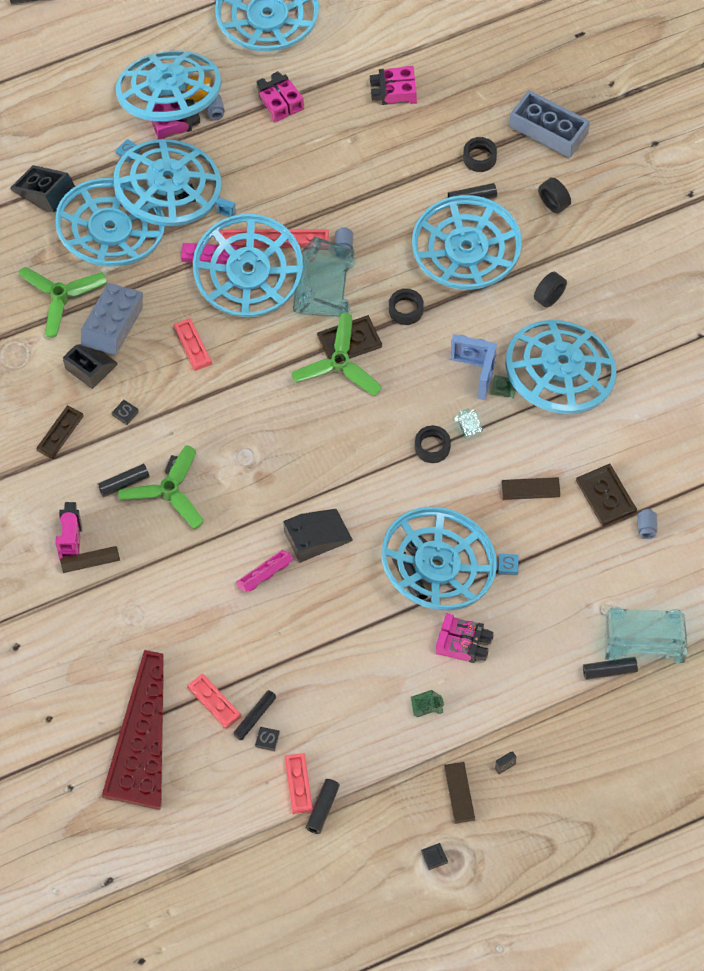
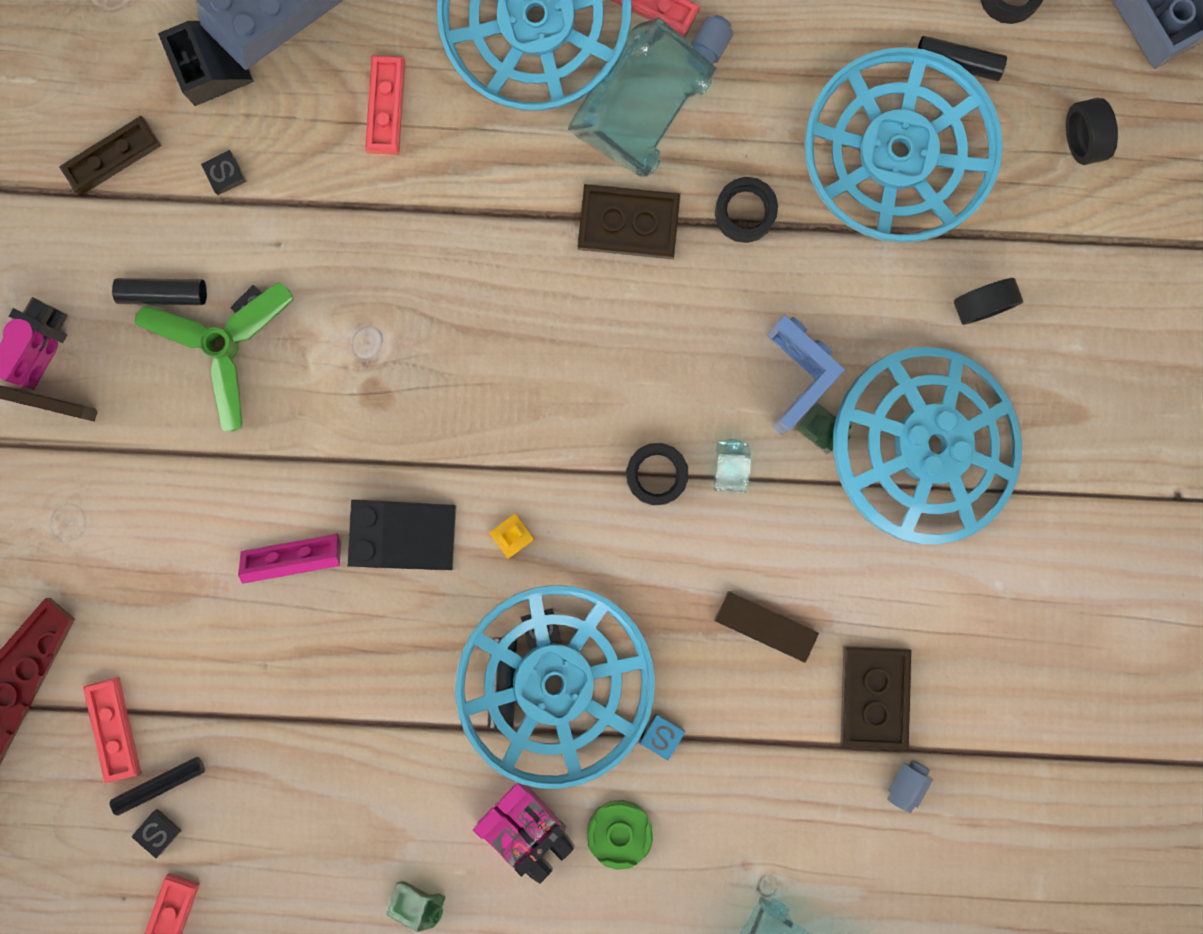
camera: 30 degrees right, 25 degrees up
(350, 369) = (562, 255): bright green piece -> none
(374, 508) = (512, 536): none -> yellow tile
(514, 621) = (619, 834): none -> bright green tile

